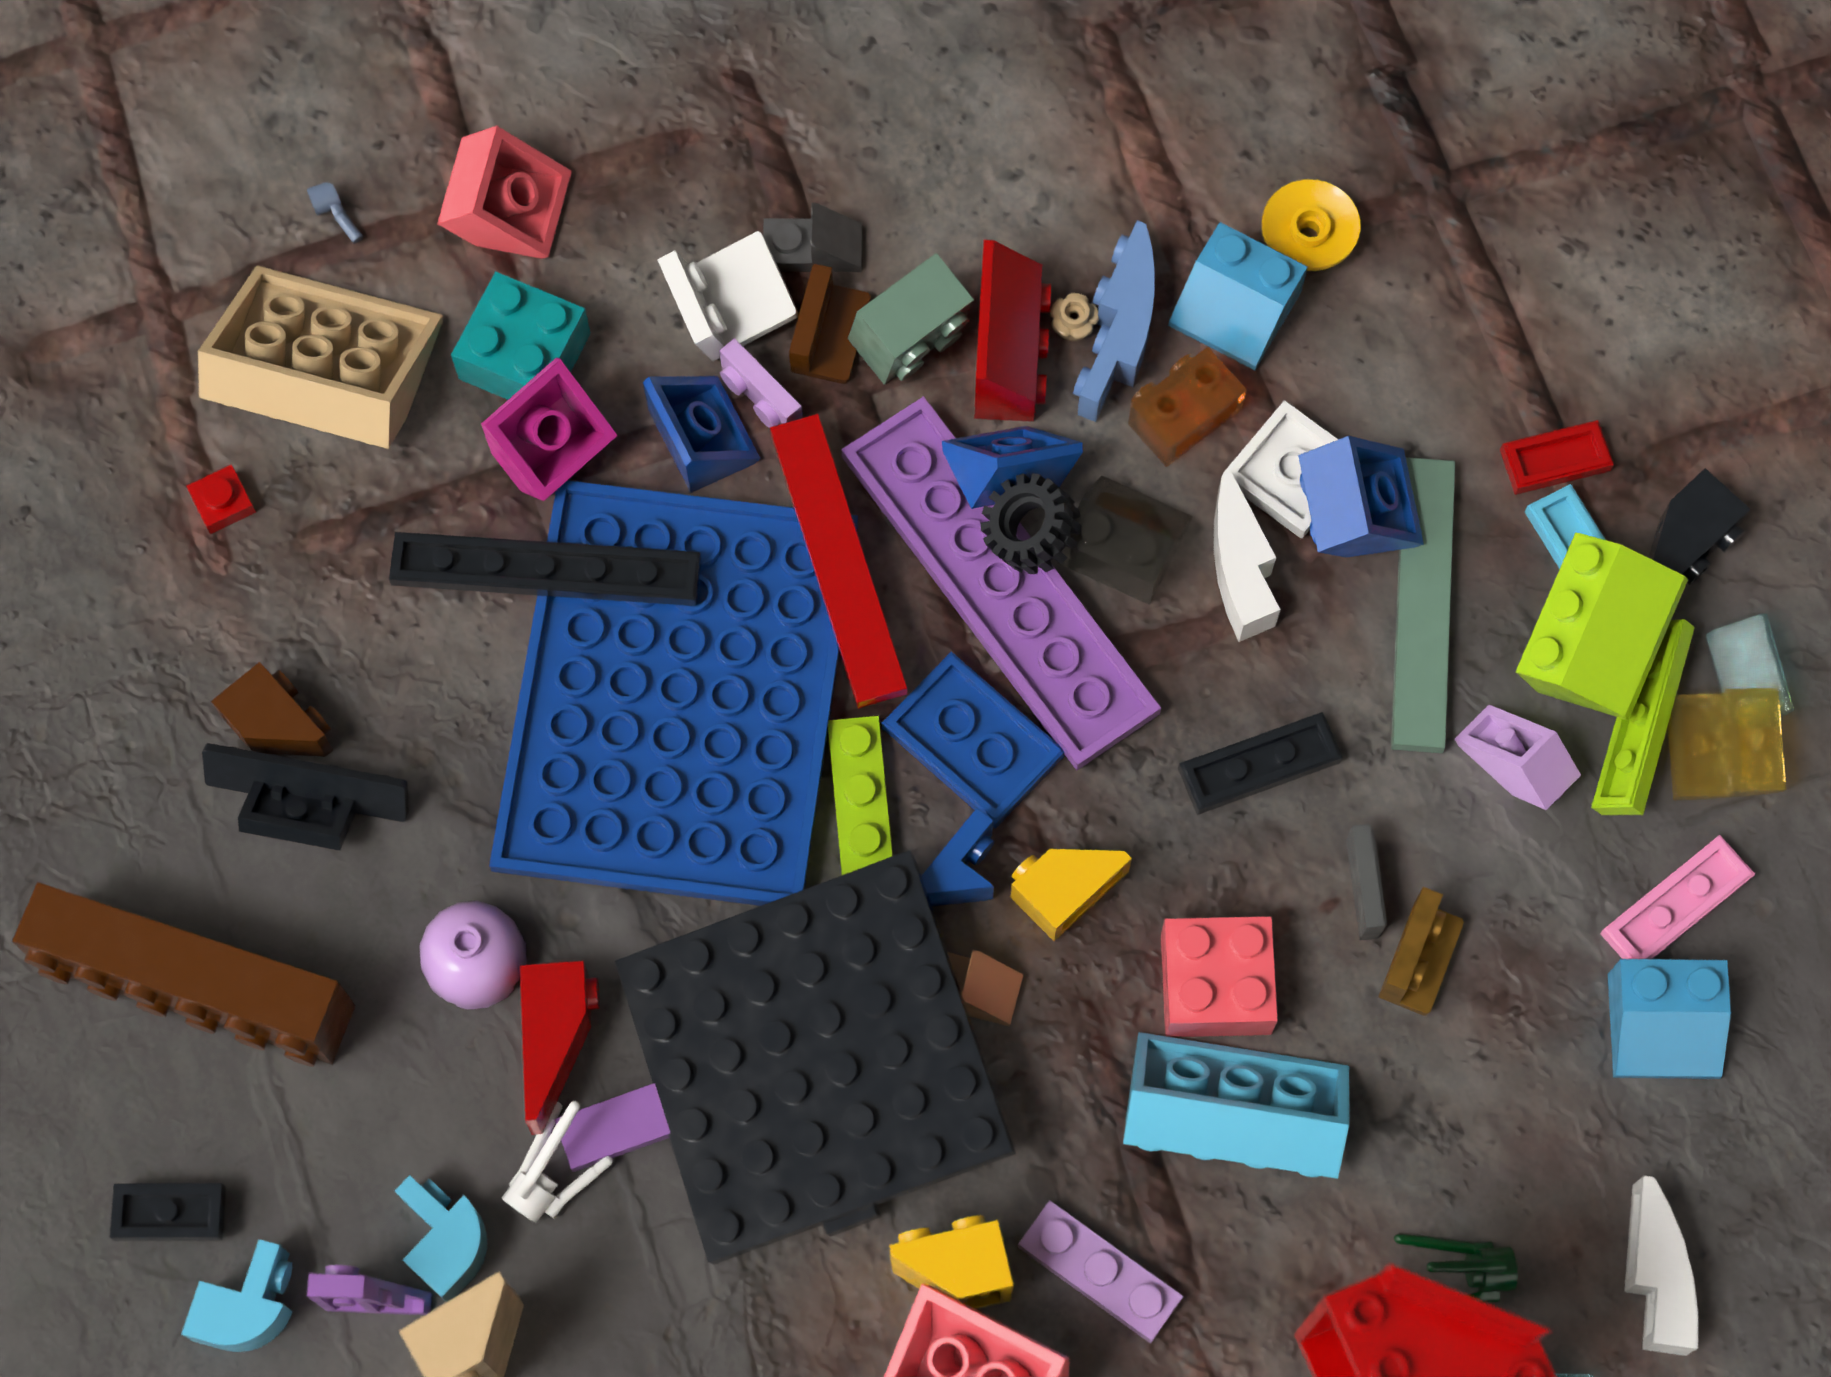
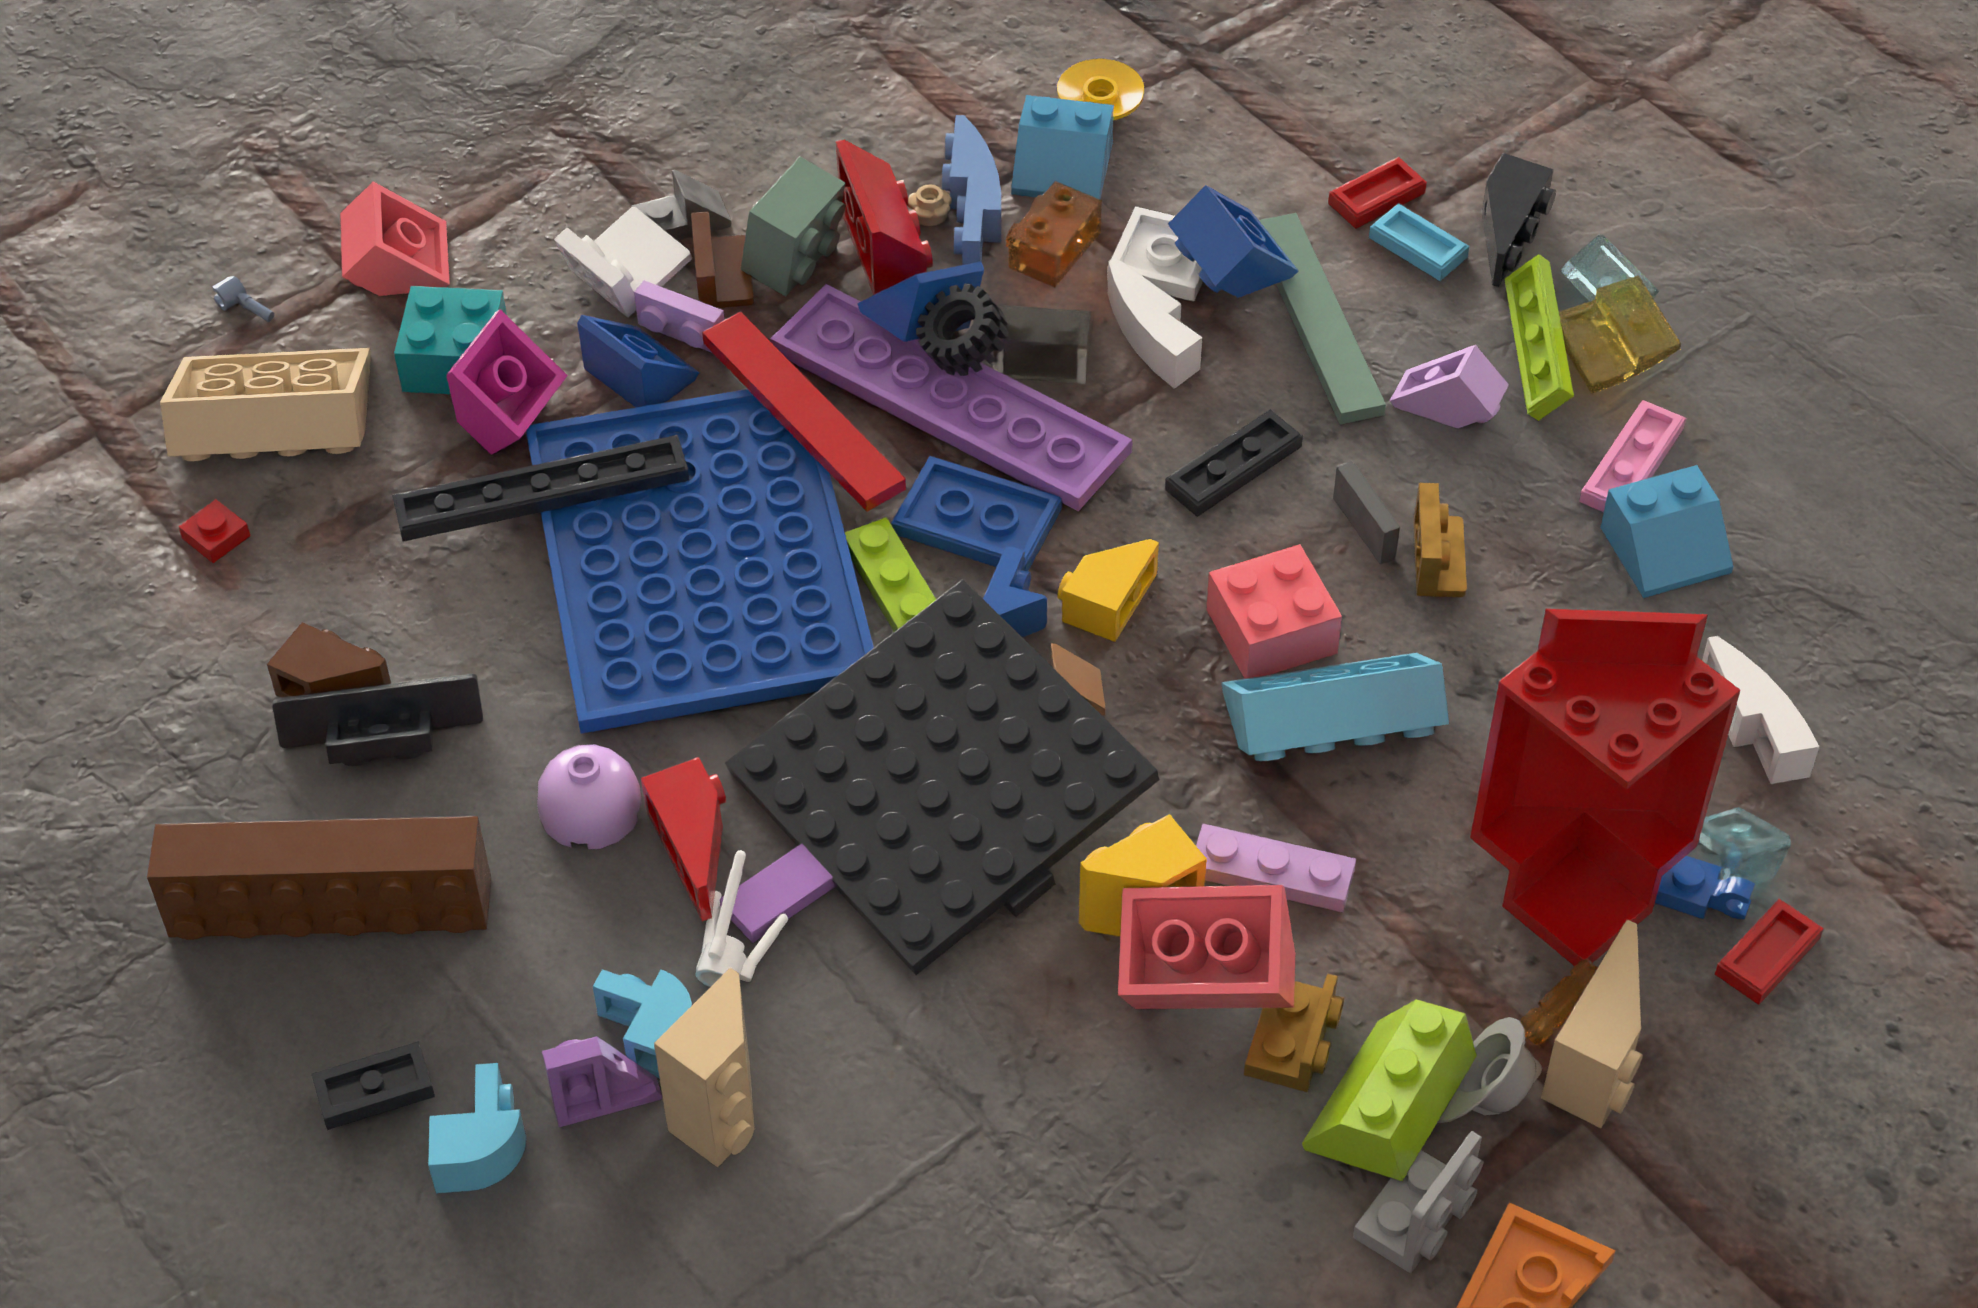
camera: 20 degrees left, 20 degrees down
(1601, 626) = (1473, 274): lime slope -> none

